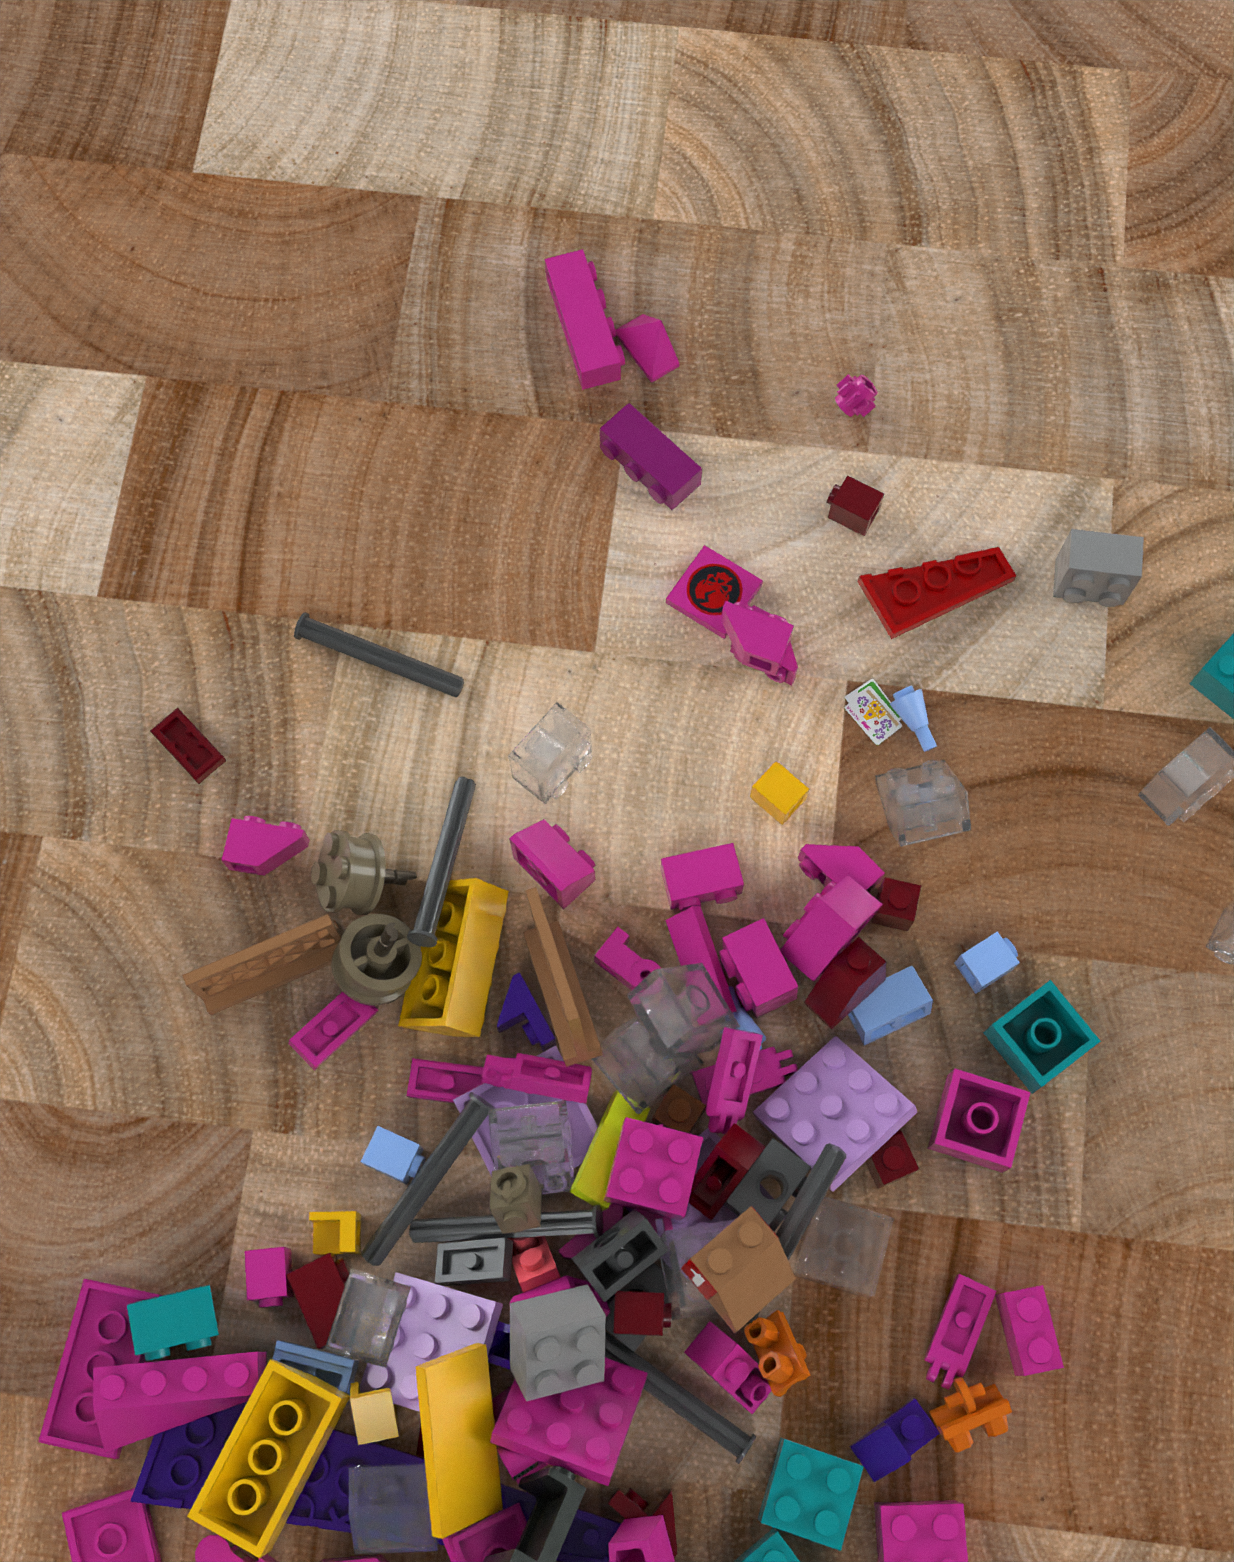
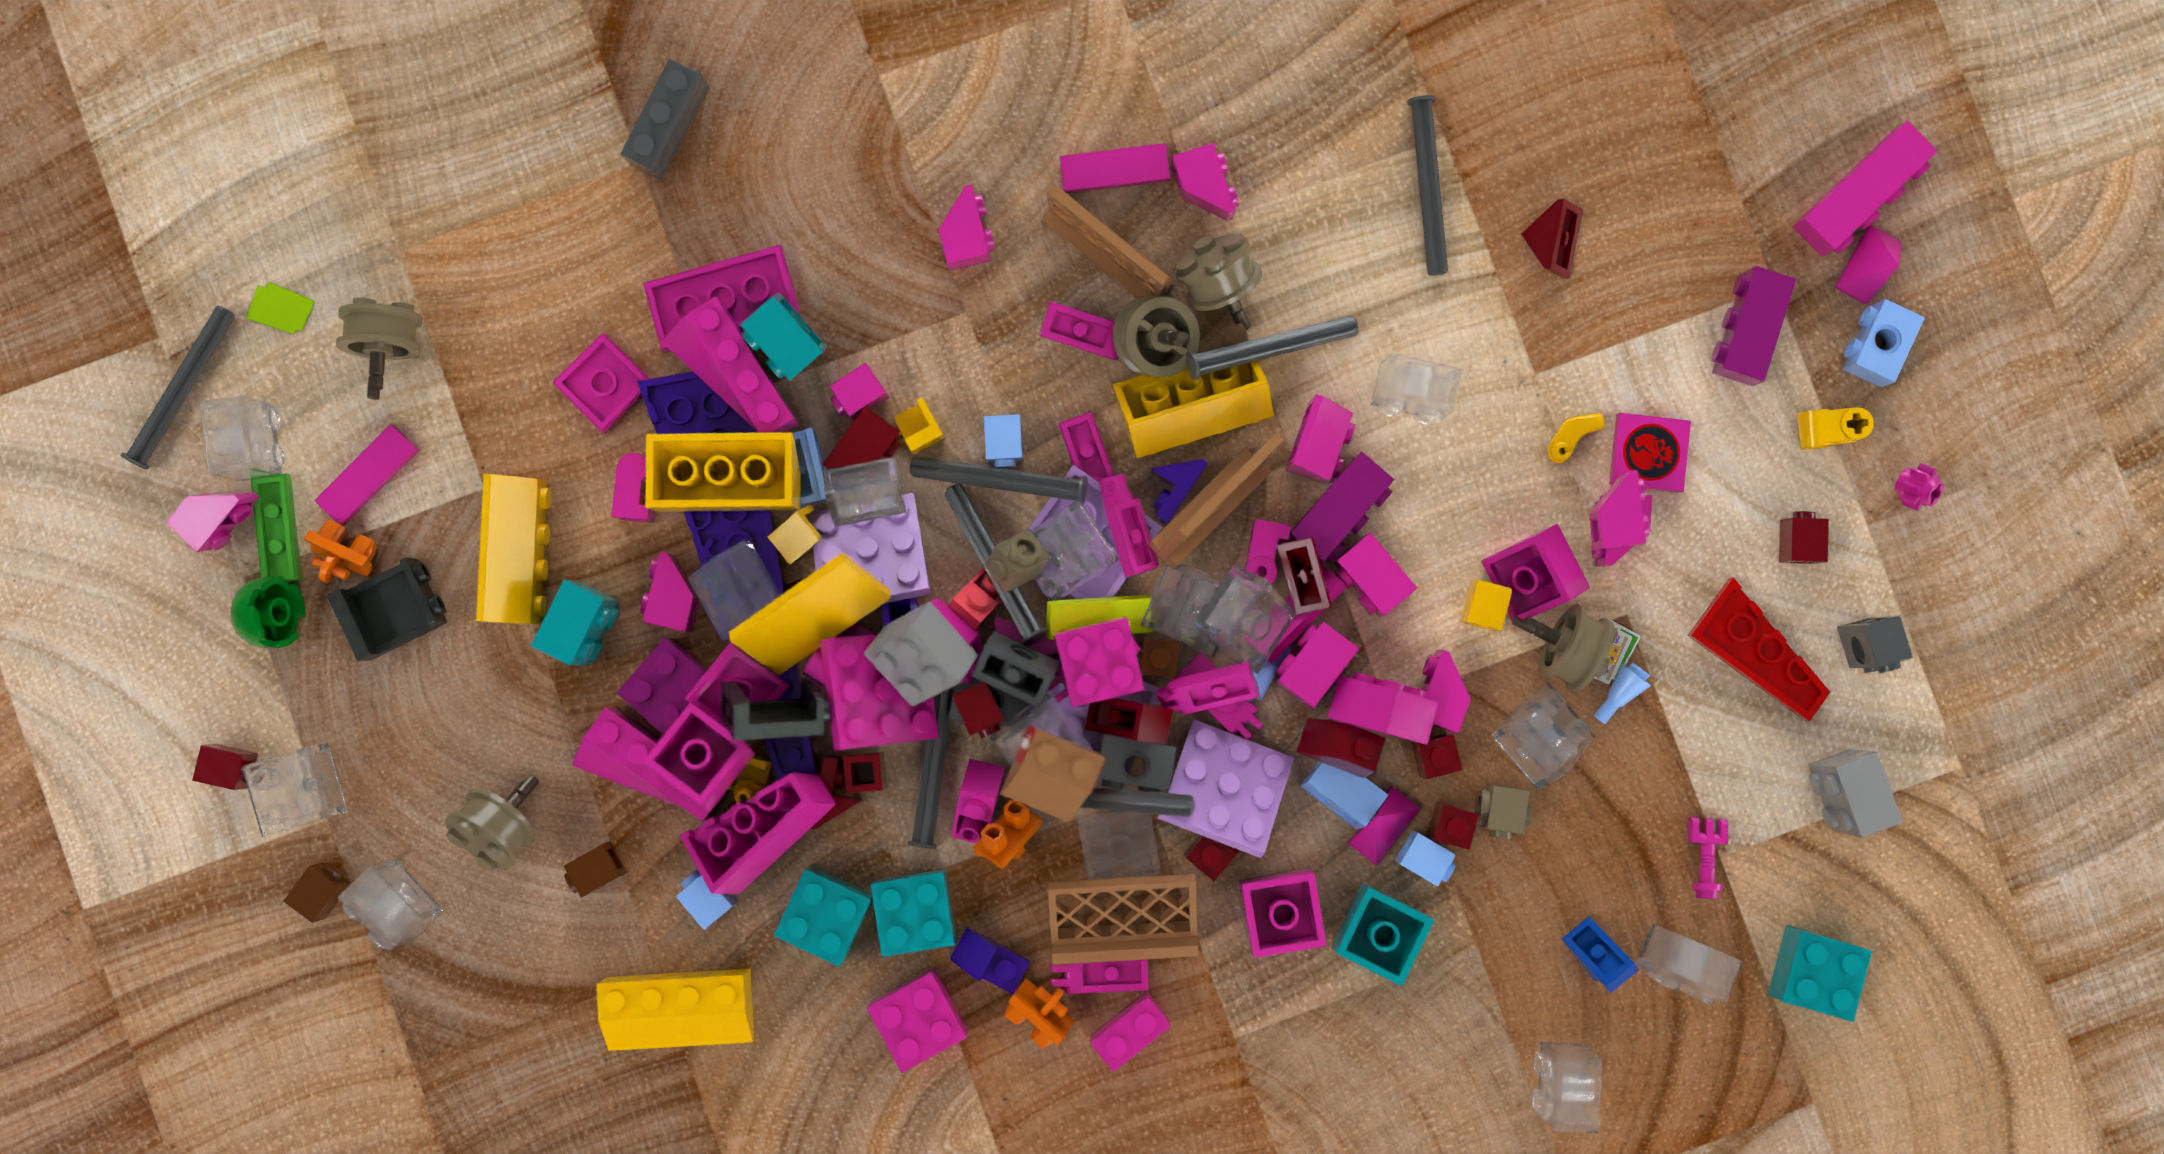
camera: 65 degrees right, 15 degrees up
(179, 1091) = (963, 234): none -> dark pink slope
(188, 745) = (1259, 65): dark red plate -> none
(202, 920) = (1115, 168): none -> dark pink tile
(474, 1262) = (953, 552): plate -> none
(483, 576) = (1555, 237): none -> dark red slope
(626, 874) = (1344, 506): none -> magenta brick
(645, 1469) = (864, 772): none -> dark red brick
(662, 647) = (1569, 434): none -> yellow arm
(670, 936) = (1304, 575): none -> dark red slope
(712, 349) = (1898, 329): none -> light blue brick
(769, 439) = (1829, 427): none -> yellow piece
(771, 732) = (1539, 573): none -> dark pink slope
(855, 735) = (1573, 647): none -> dark tan wheel
(935, 1288) = (1123, 940): none -> medium nougat fence
(936, 975) = (1385, 826): none -> dark pink slope
(968, 921) = (1453, 825): none -> dark red brick
(974, 490) = (1875, 643): none -> dark grey brick
(974, 870) = (1503, 810): none -> dark tan brick
(1083, 710) = (1707, 839): none -> dark pink hinge
(1148, 851) = (1599, 955): none -> blue slope

